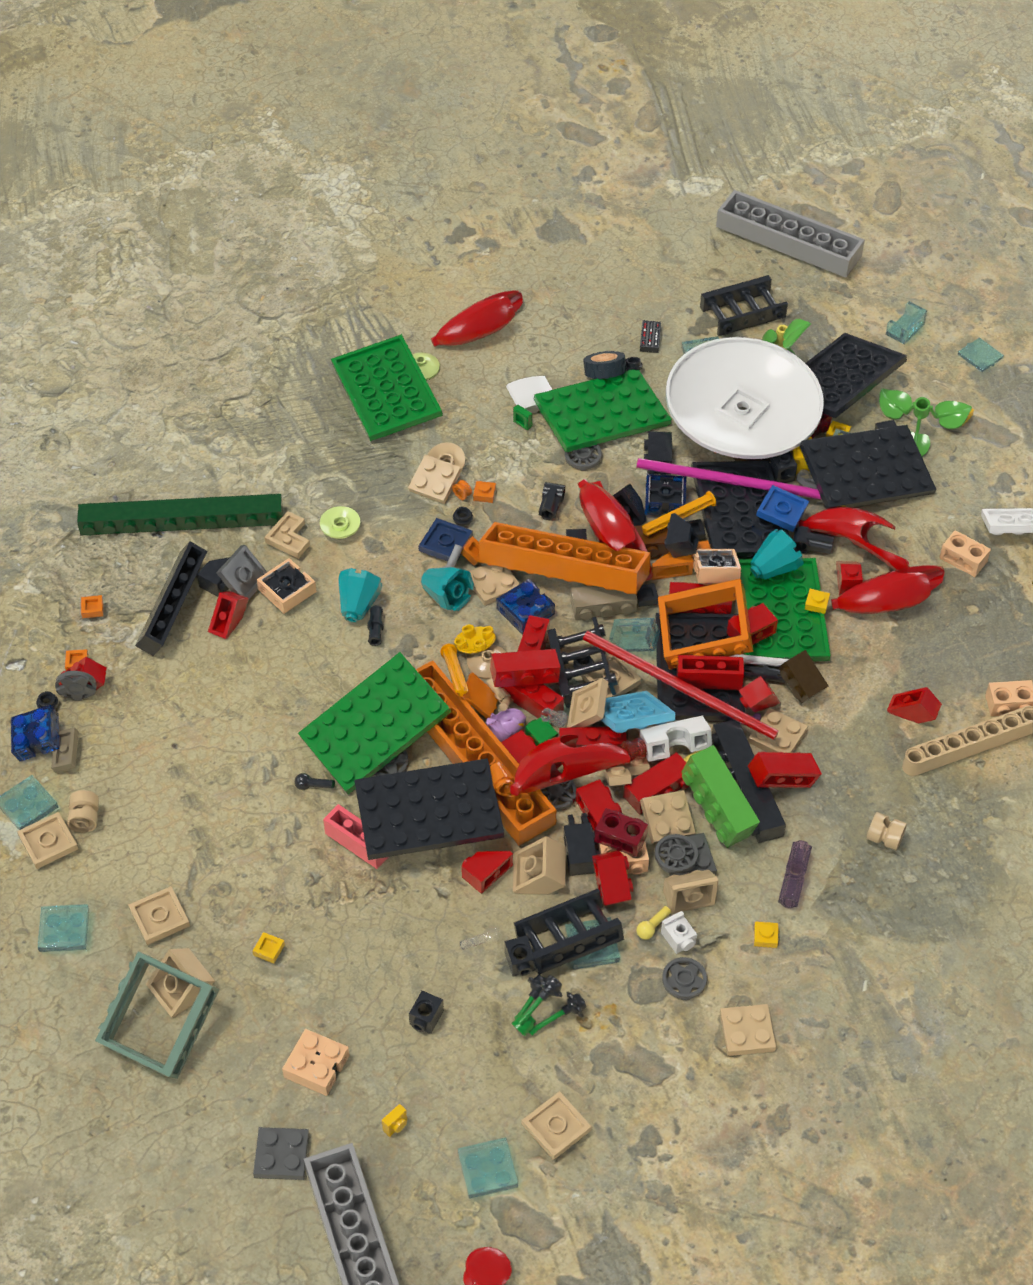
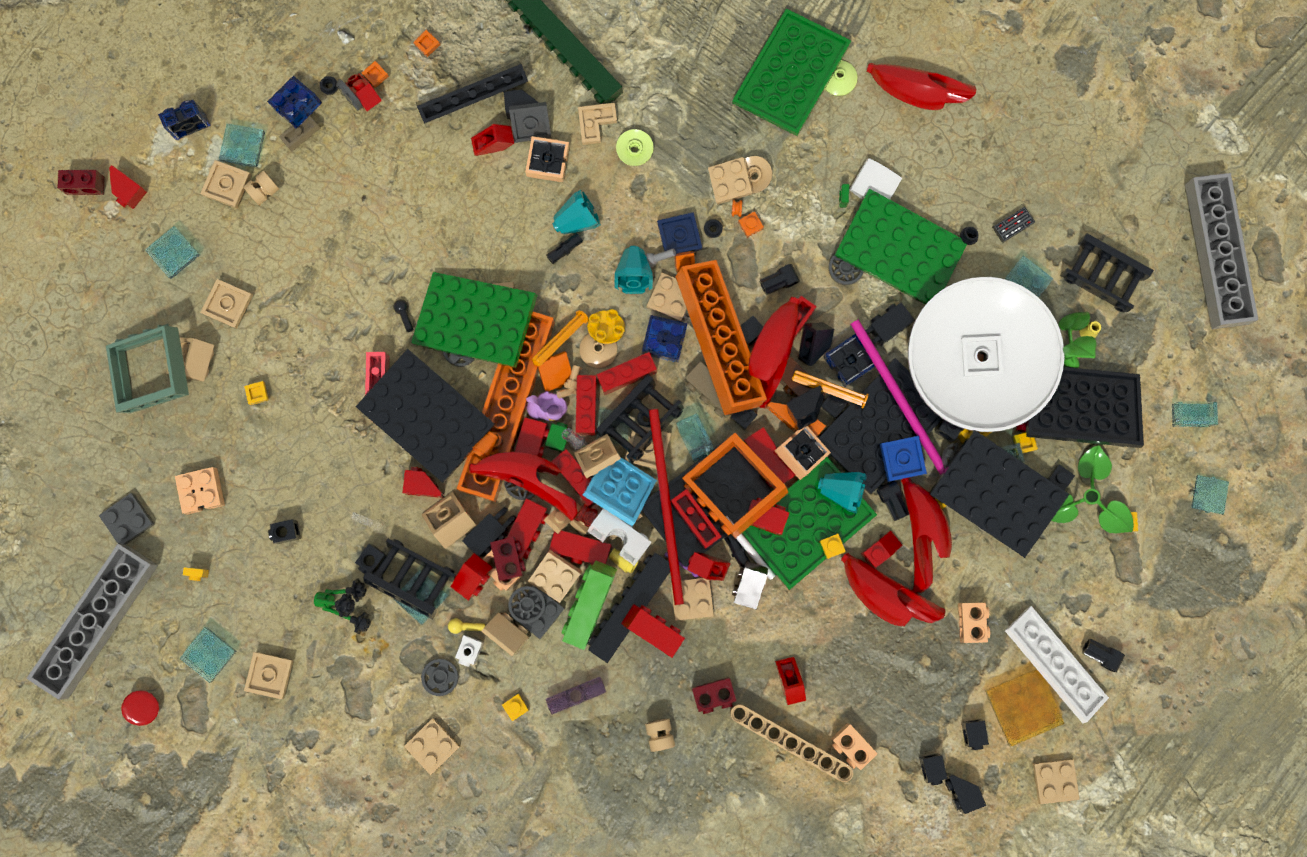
camera: 50 degrees right, 30 degrees up
(525, 668) = (590, 390): red brick -> none
(604, 364) = (946, 216): black wheel -> none
(878, 768) = (712, 689): none -> dark red brick

